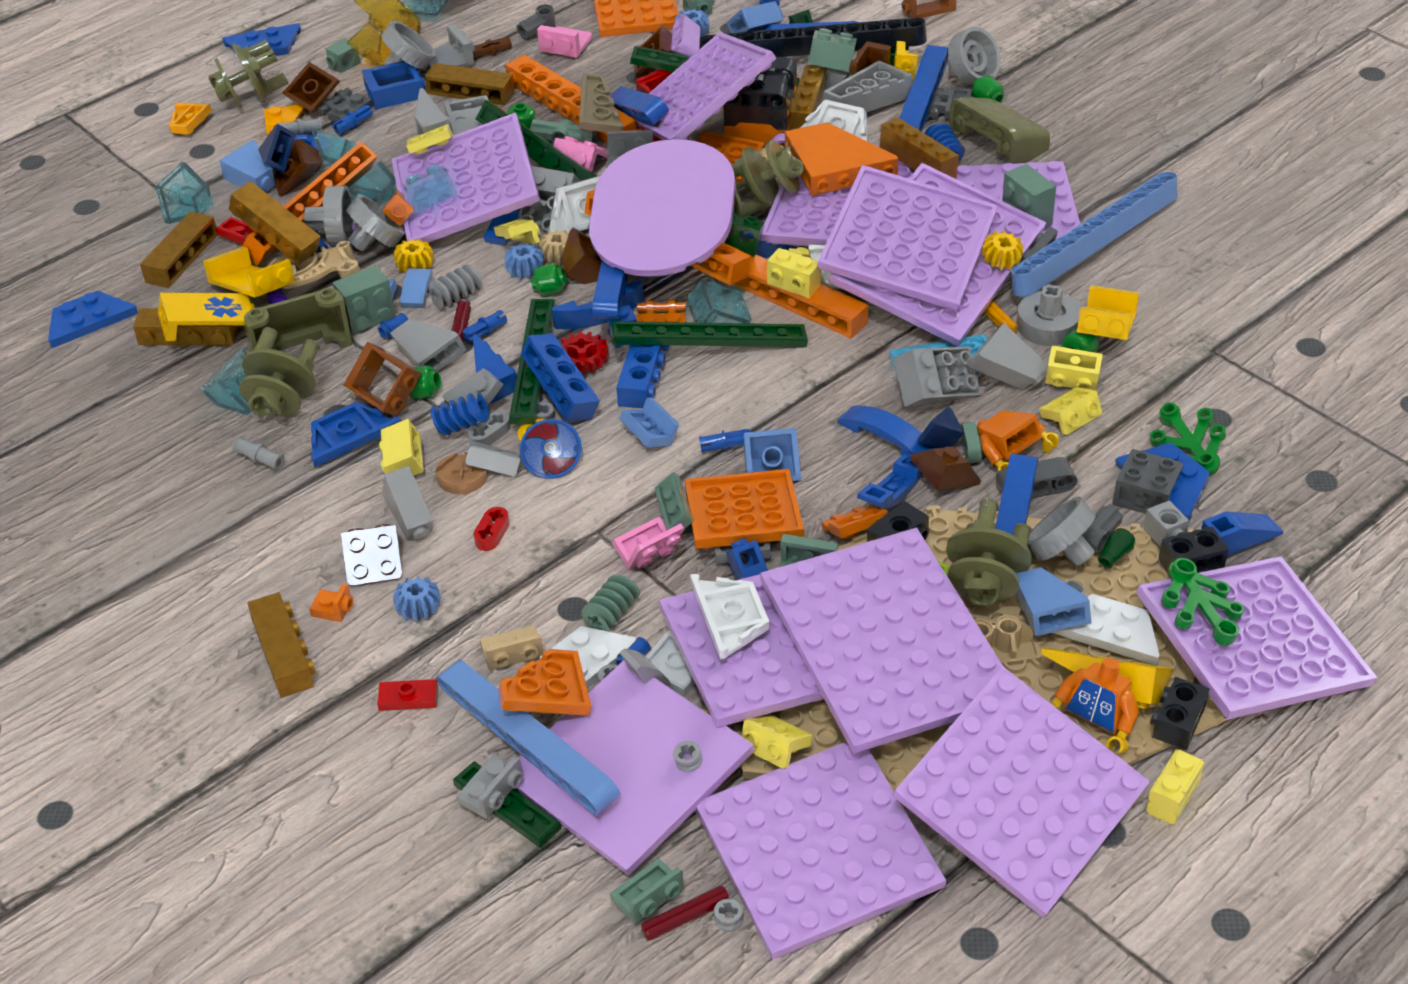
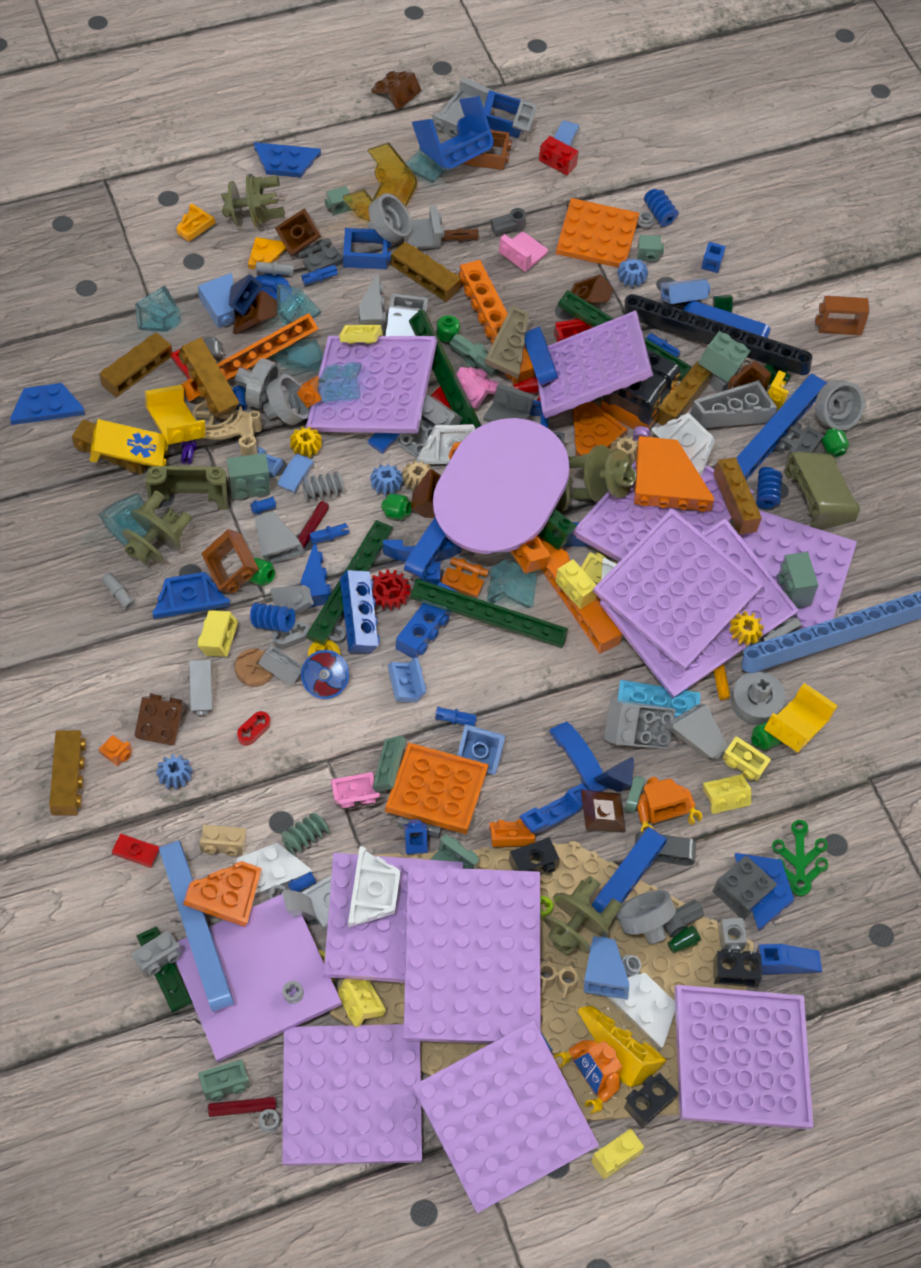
camera: 15 degrees right, 15 degrees up
(519, 229) = (391, 449): light yellow bracket -> none
(685, 36) = (616, 292): lavender beam -> none
(1184, 573) = (715, 1015): green plant -> none

